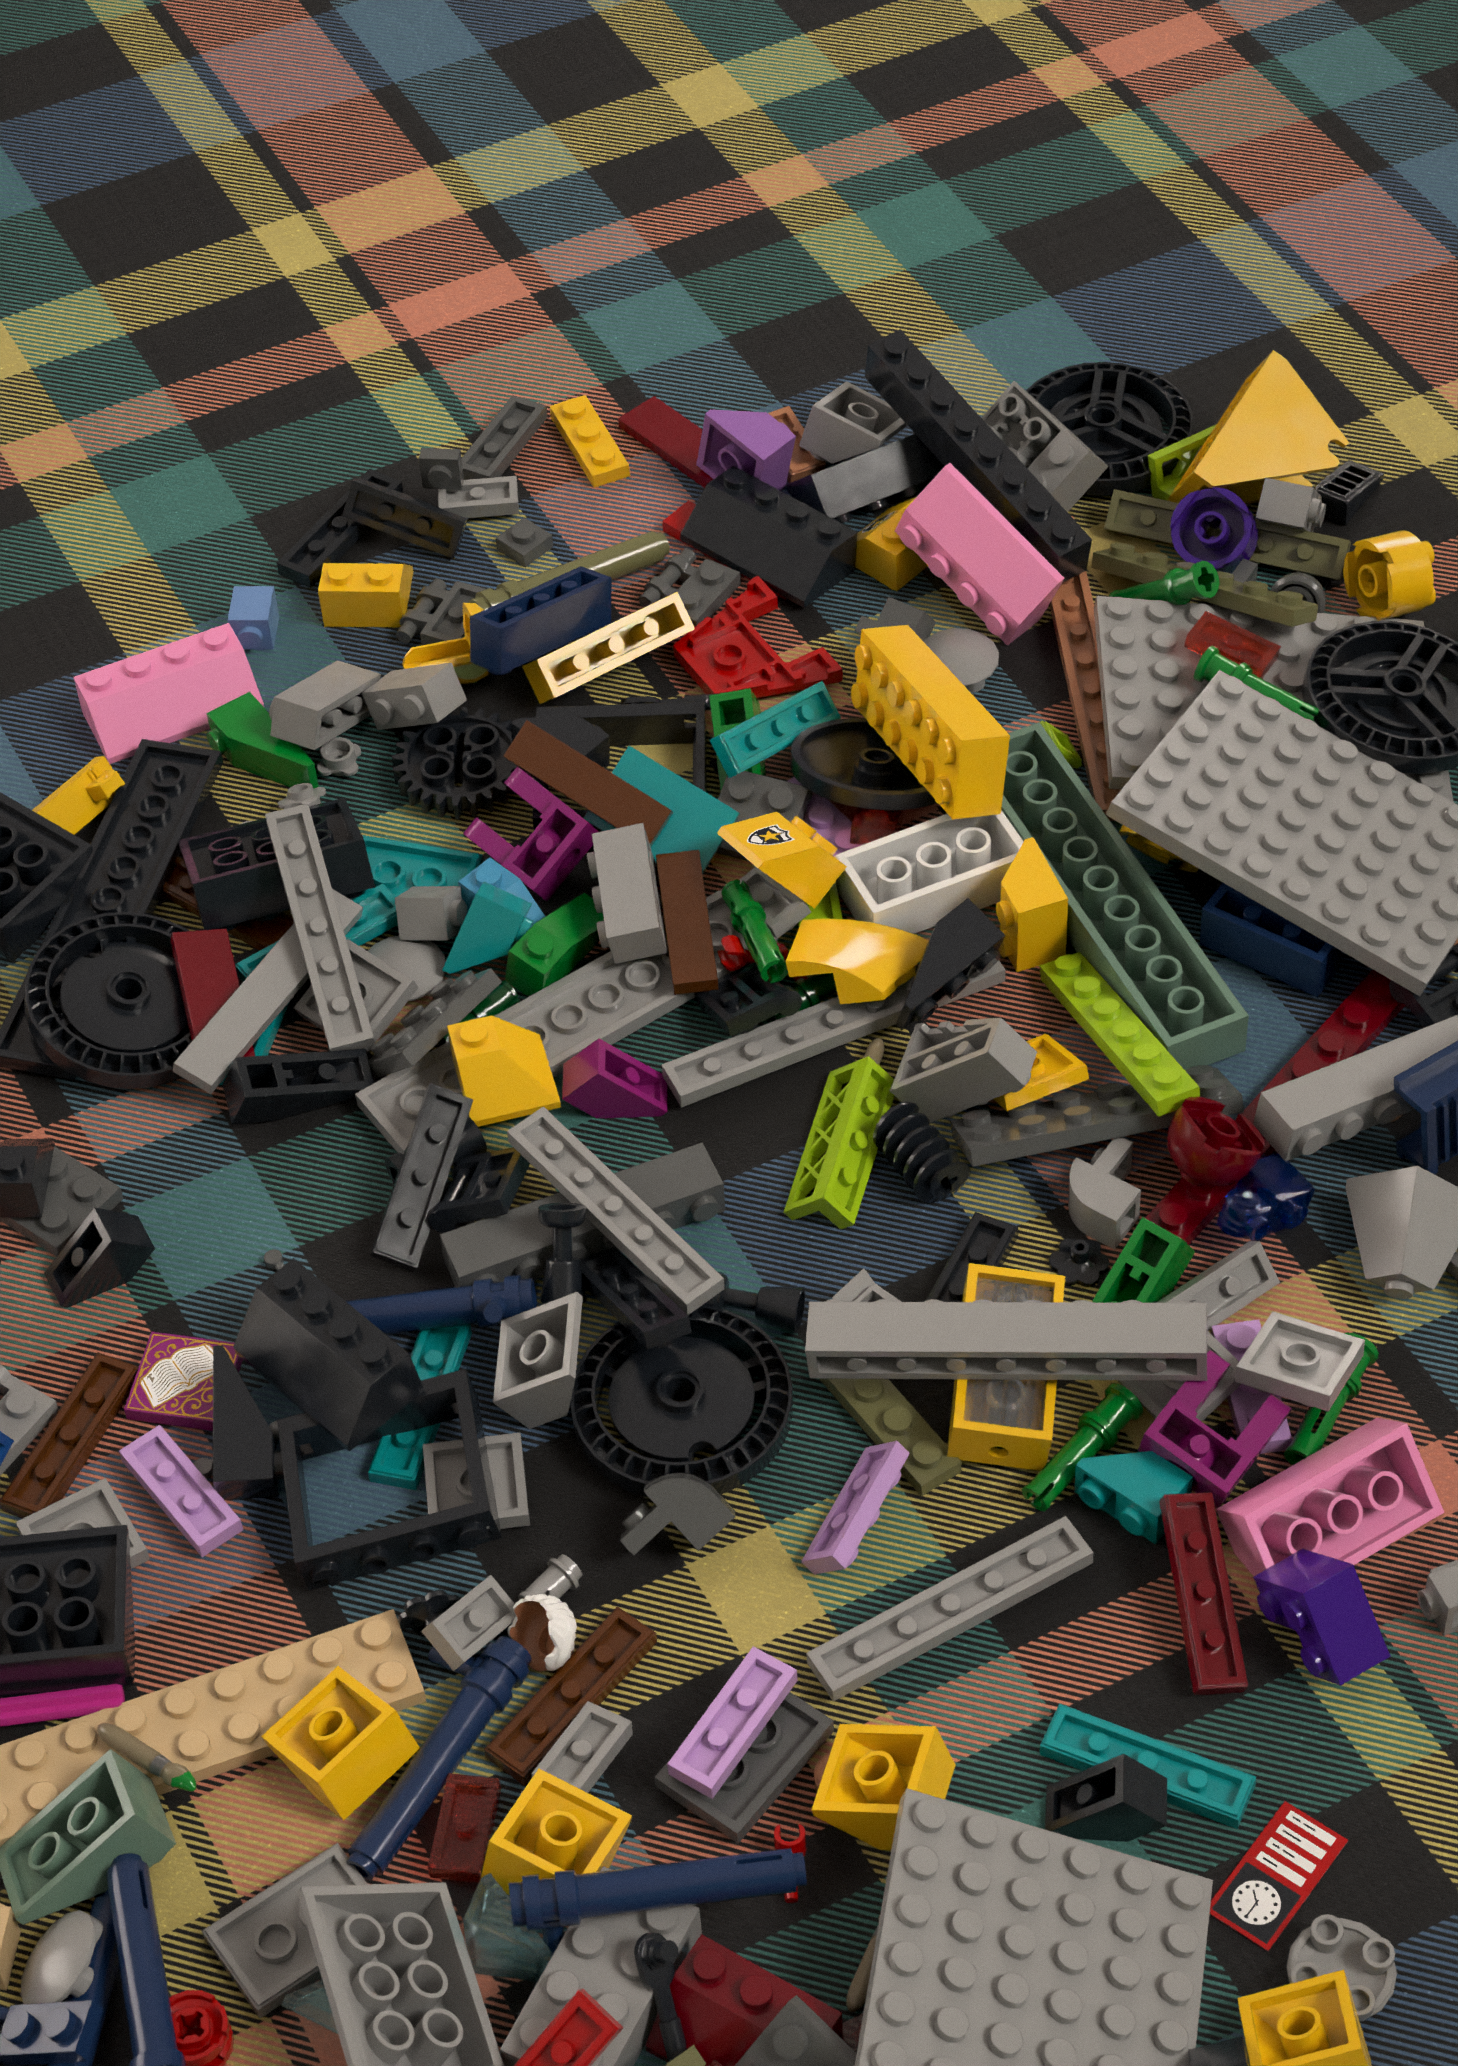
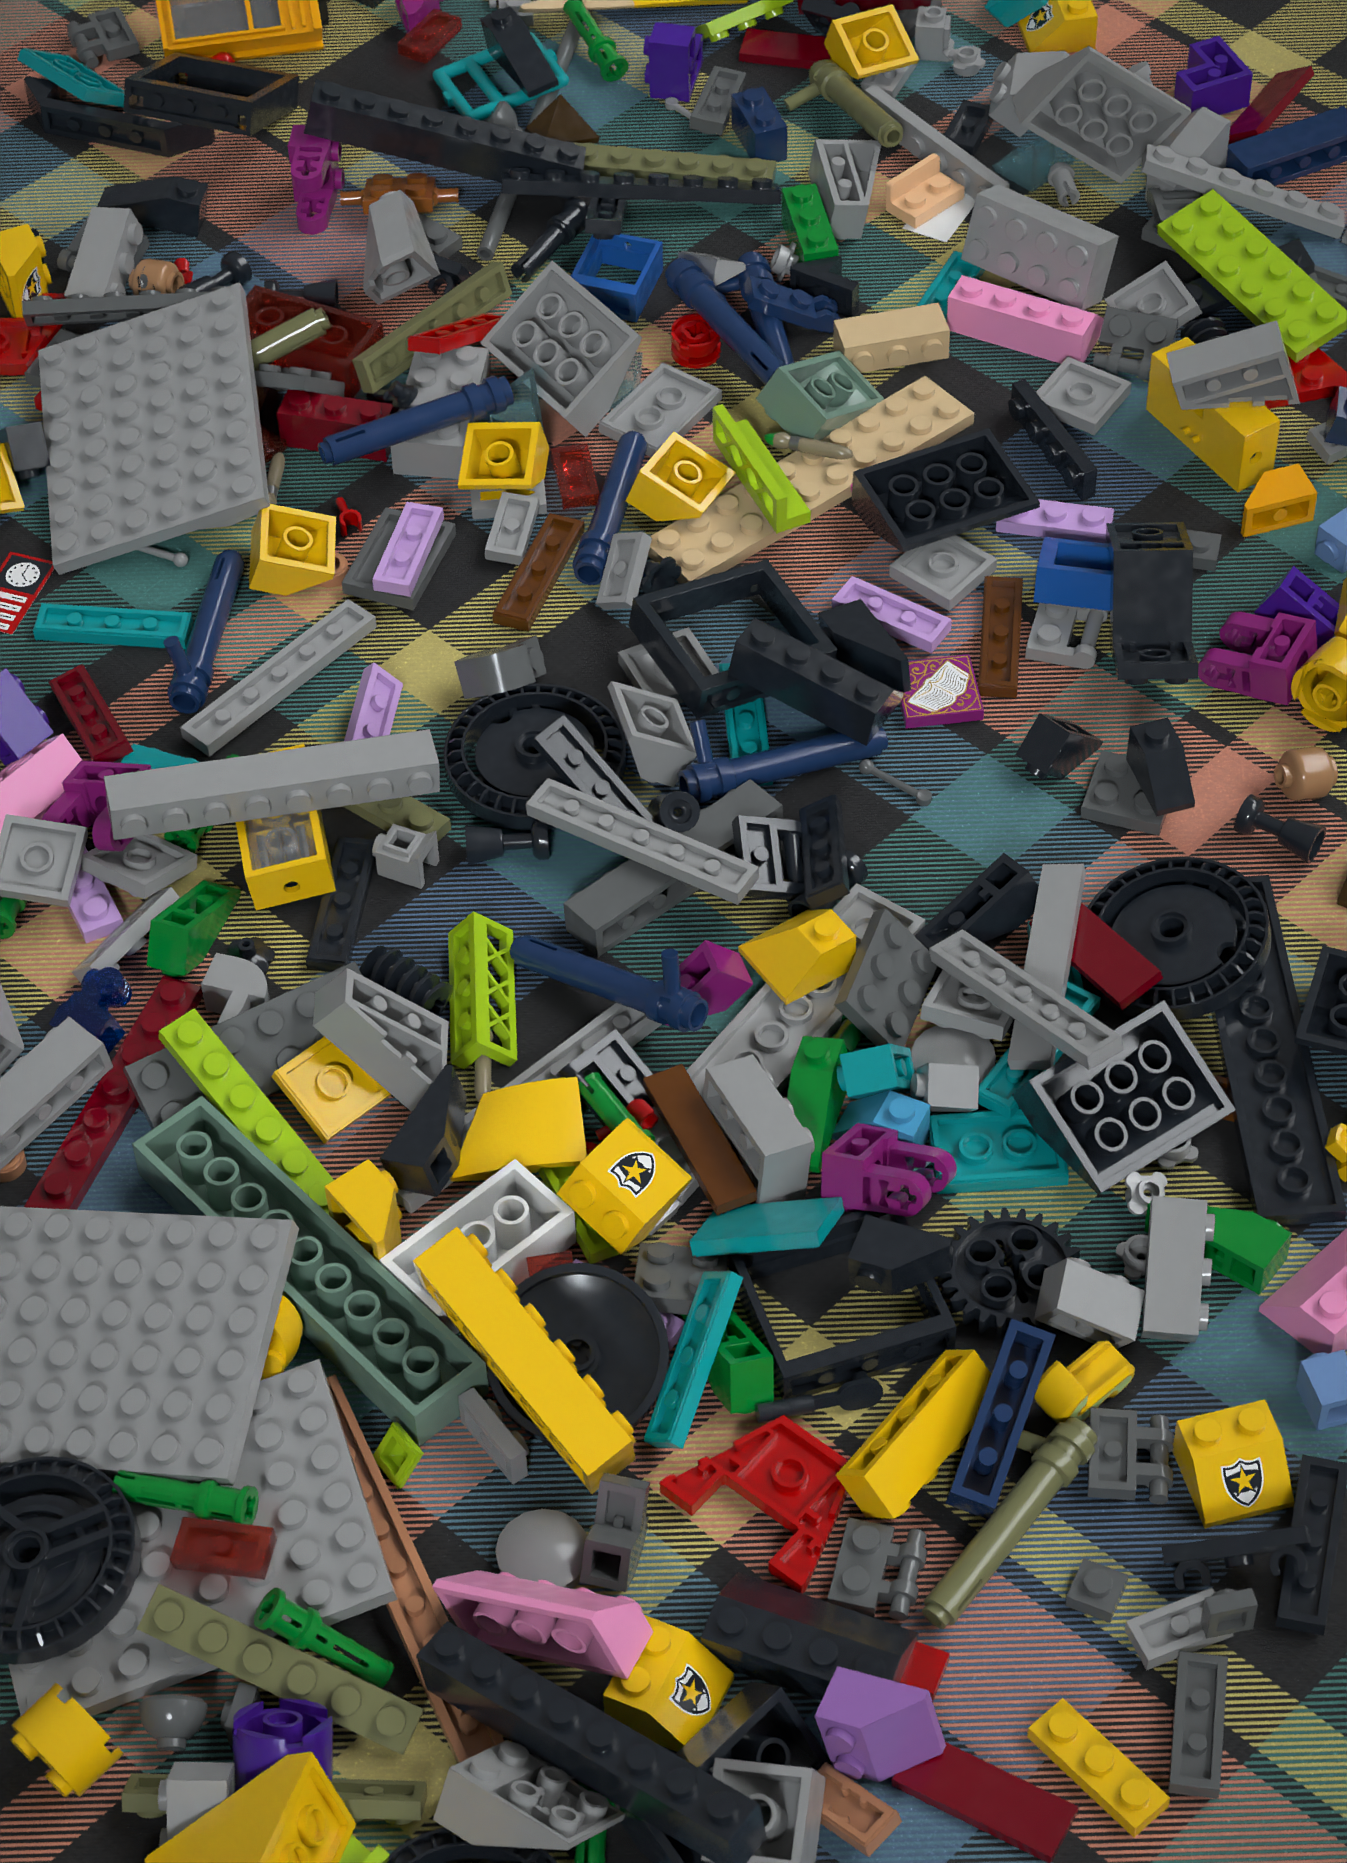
camera: 160 degrees right, 0 degrees up
(61, 1960) = (795, 338): light grey dish -> none
(231, 1723) = (759, 472): none -> lime fence
(545, 1630) = (566, 583): hair -> none
(556, 1579) = (578, 628): light grey pin -> none
(585, 781) = (843, 1199): reddish brown tile -> none
(669, 1040) = (660, 1000): none -> dark blue cylinder
(1056, 1643) = (194, 666): none -> dark blue cylinder
(1108, 1802) = (133, 582): black slope -> none
(1212, 1145) = (135, 1008): dark red cylinder -> none

